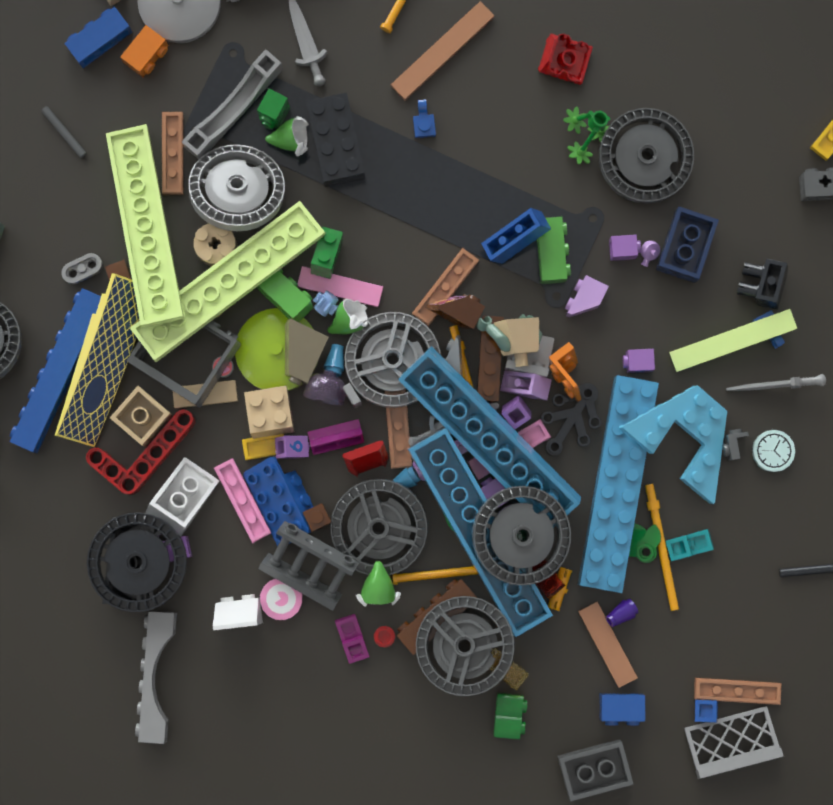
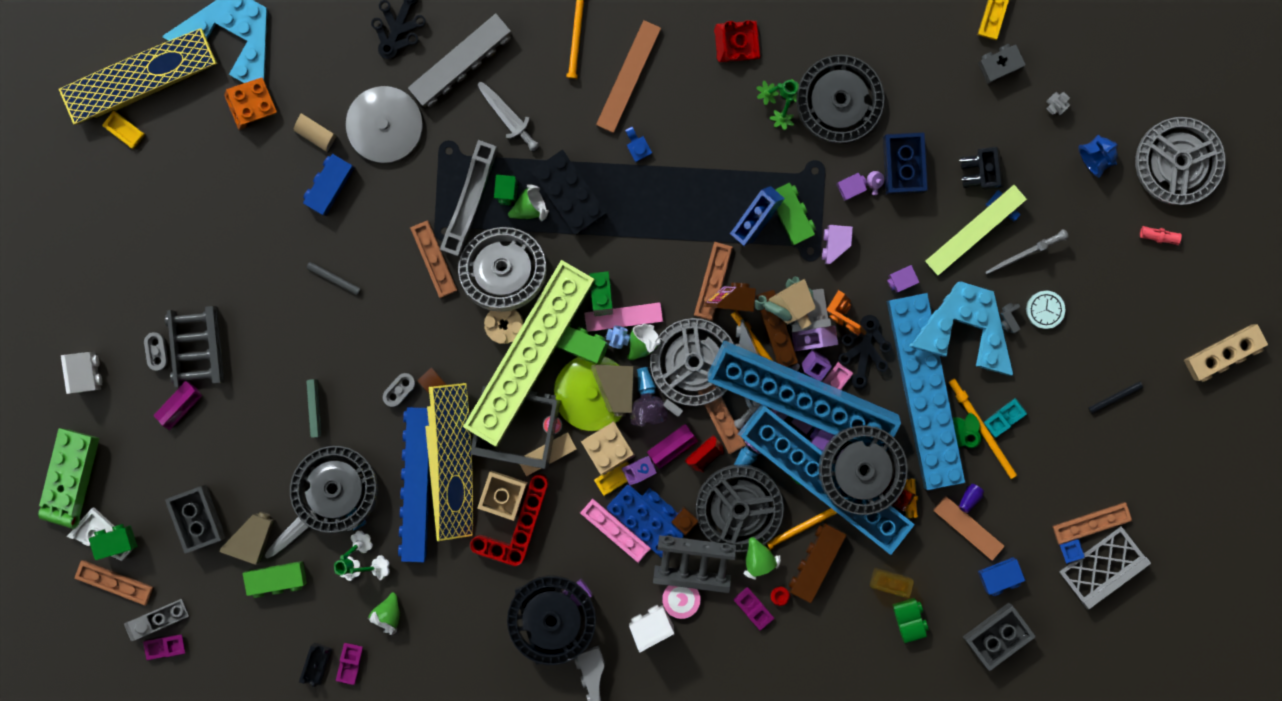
camera: 20 degrees left, 5 degrees up
(144, 226) = (438, 333): yellowish green plate -> none
(145, 51) = (373, 181): orange brick -> none
(182, 495) = (564, 547): white slope -> none
(447, 646) = (852, 595): dark grey piece -> none

